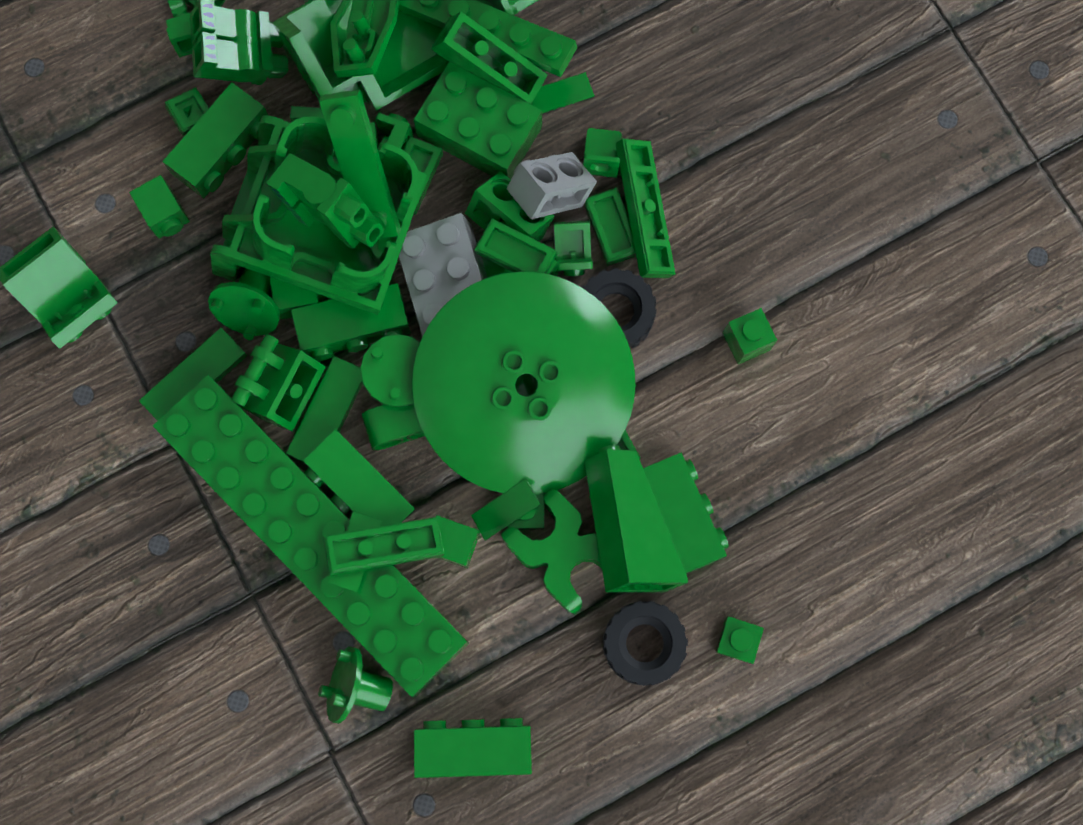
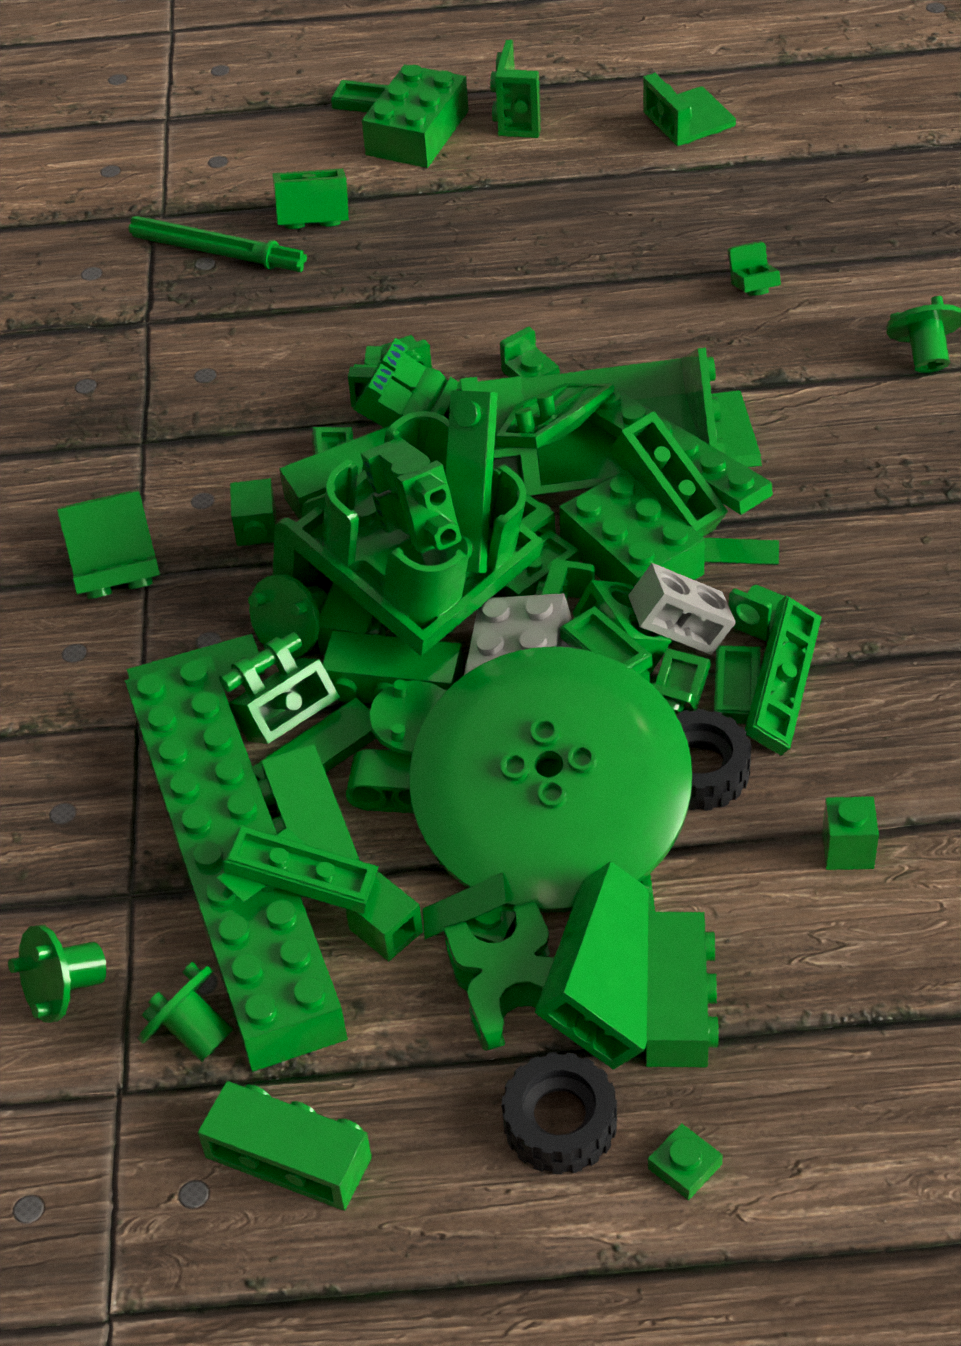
camera: 30 degrees right, 30 degrees down
(239, 693) = (53, 971): none -> green piece
(442, 179) = (567, 578): none -> green bracket

